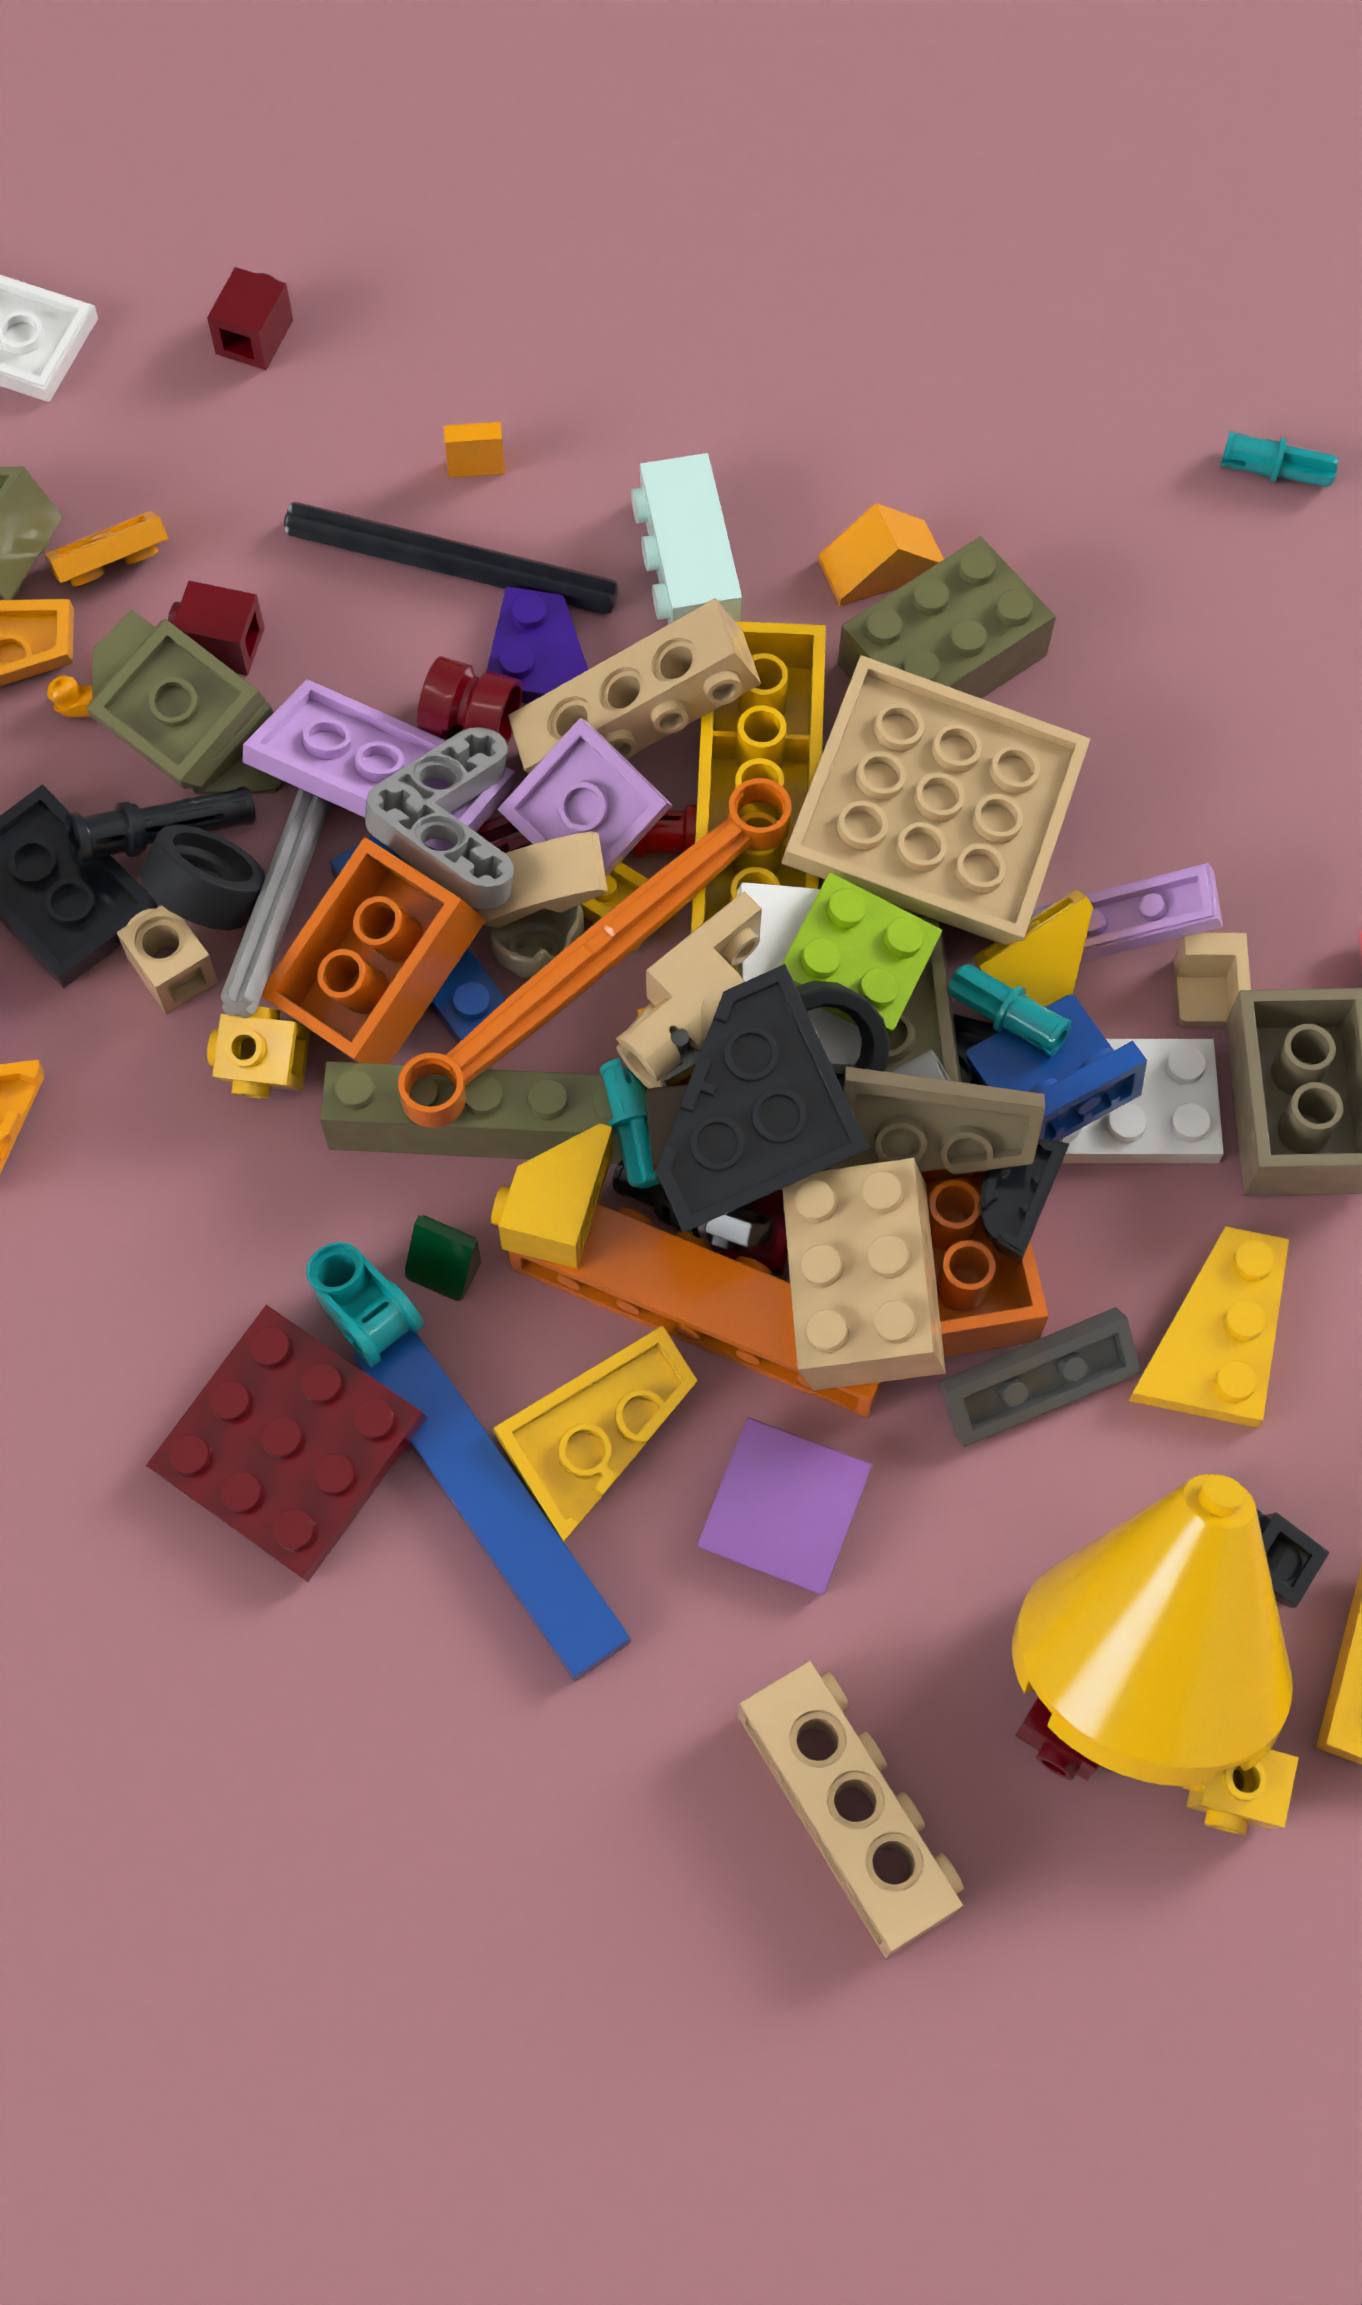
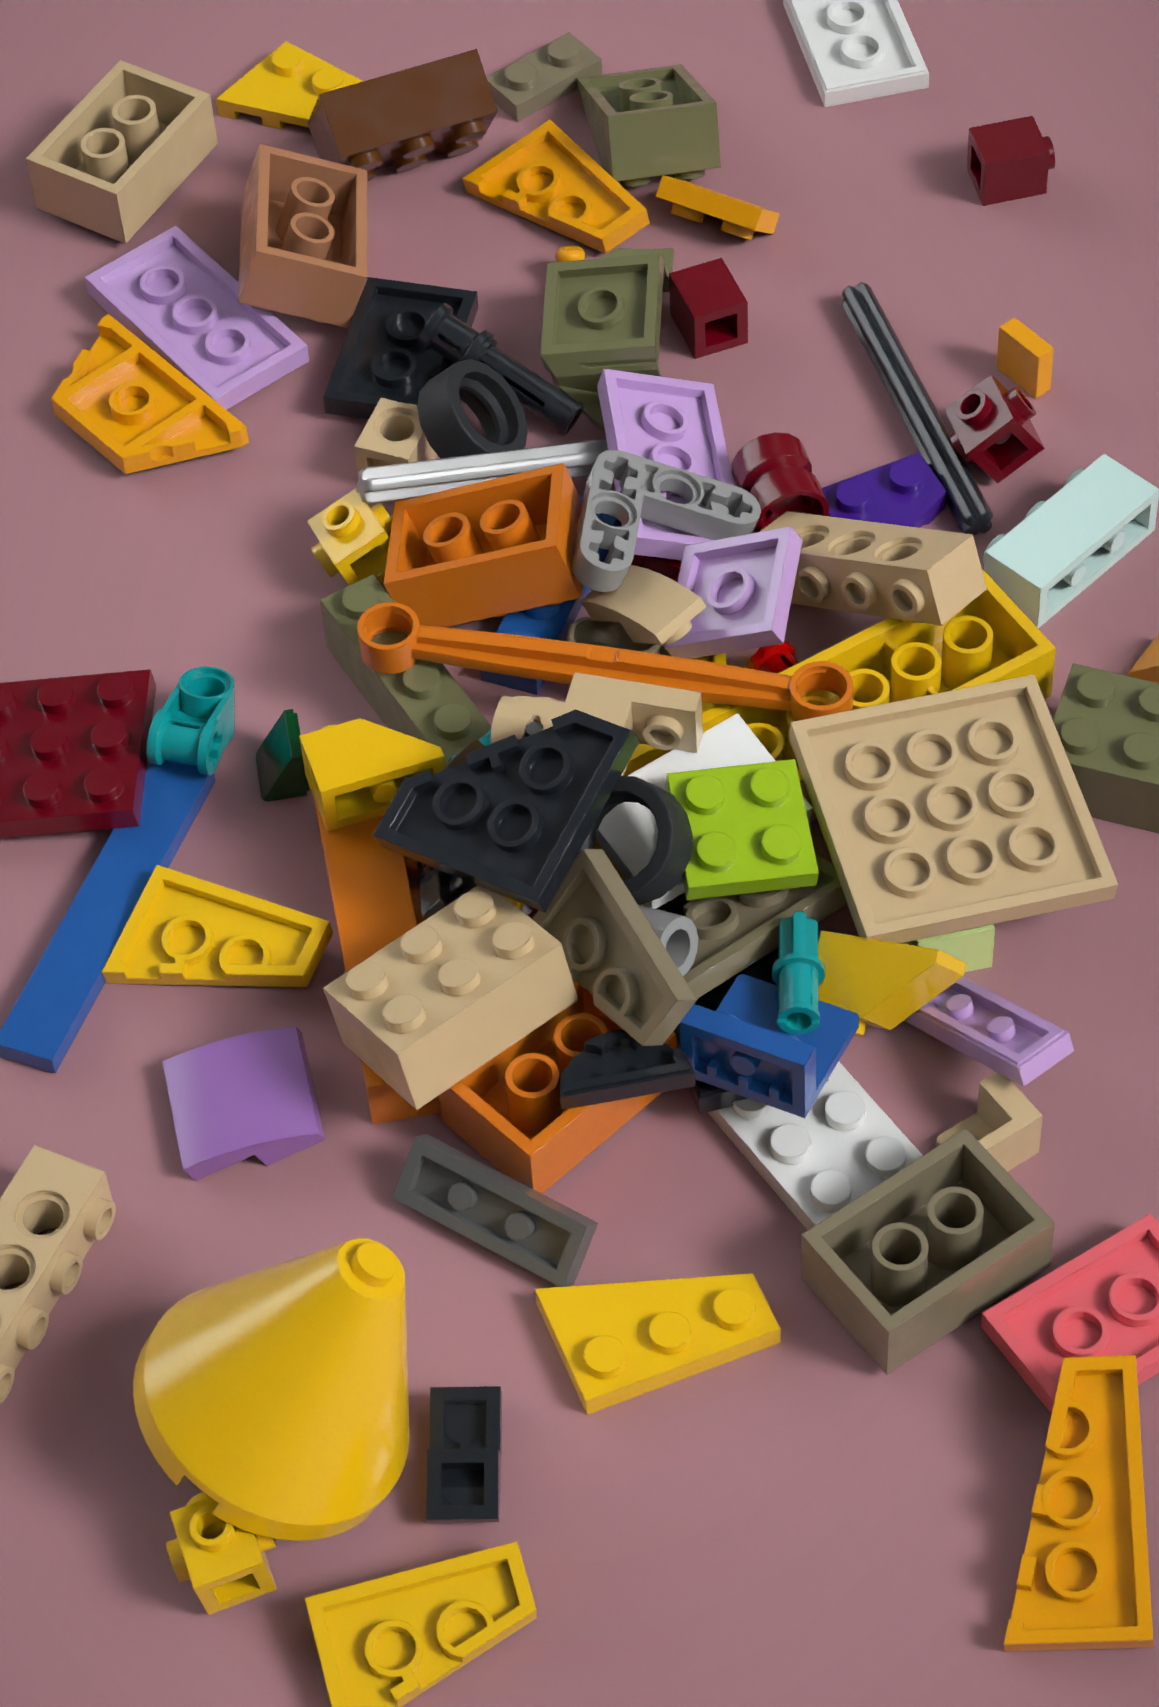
camera: 60 degrees right, 15 degrees down
(538, 518) = (994, 428): none -> dark red brick

